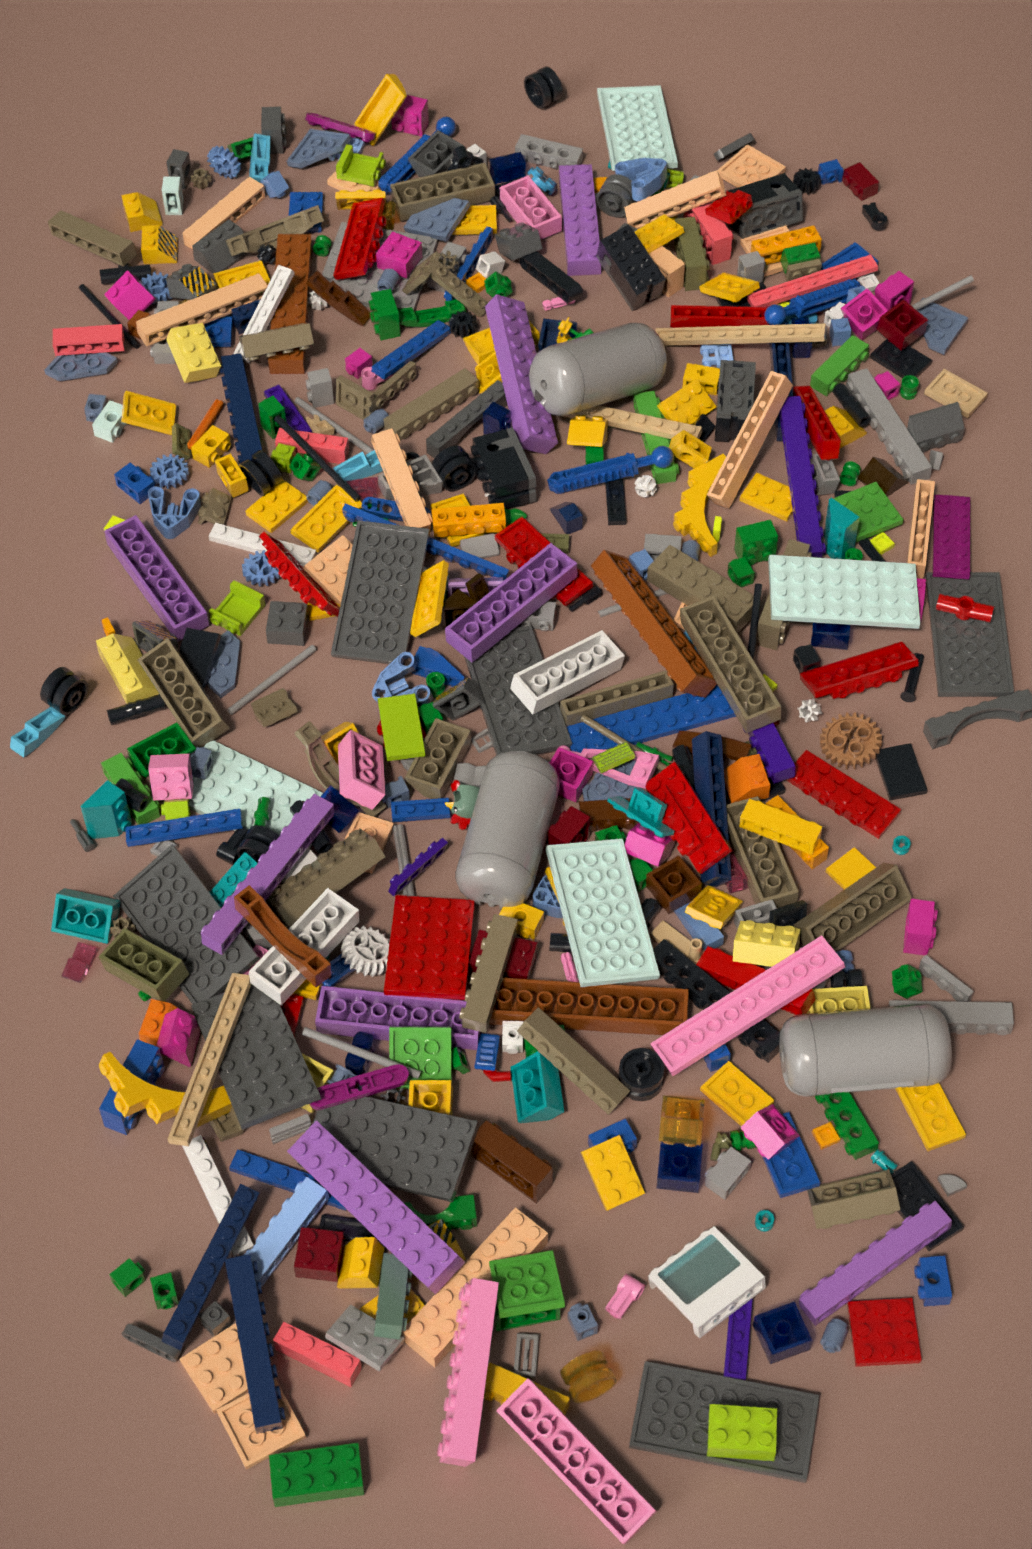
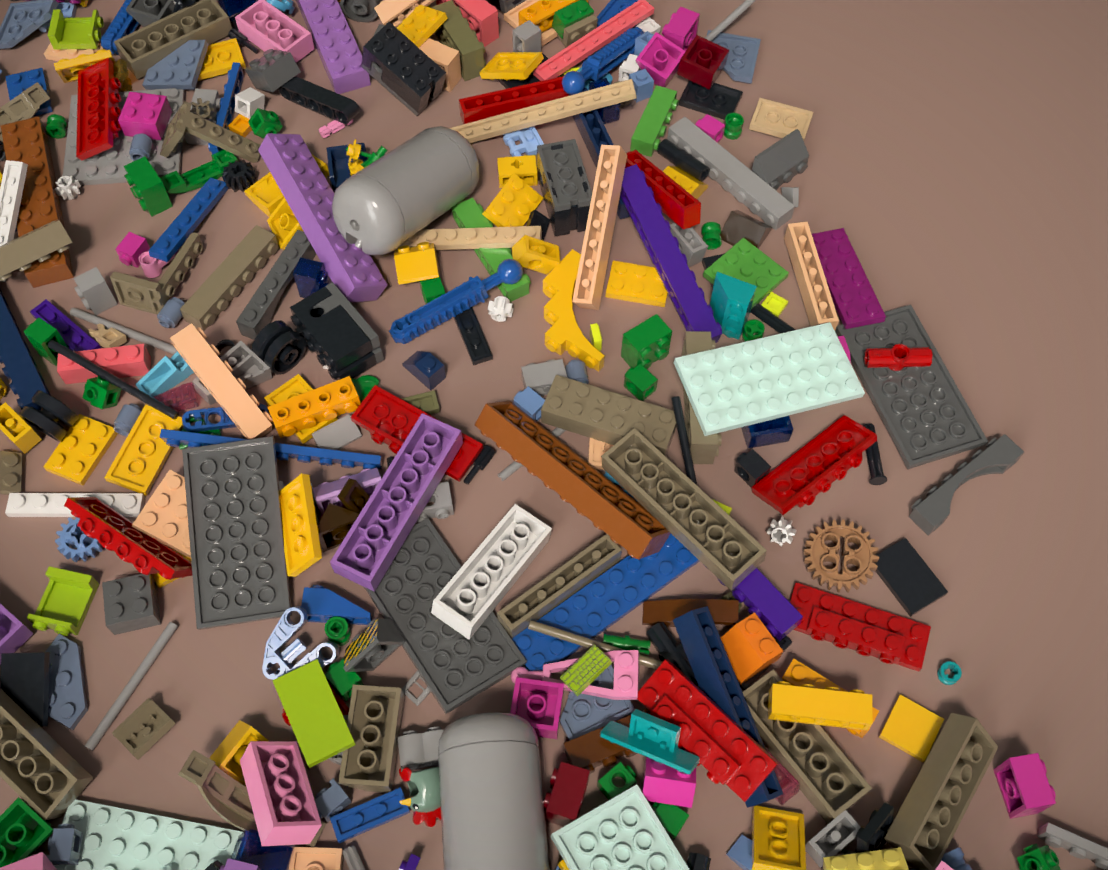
camera: 20 degrees left, 5 degrees up
(283, 456) = (72, 387): lime brick -> none
(342, 301) = (90, 182): reddish brown slope -> none
(673, 884) = (716, 823): reddish brown brick -> none

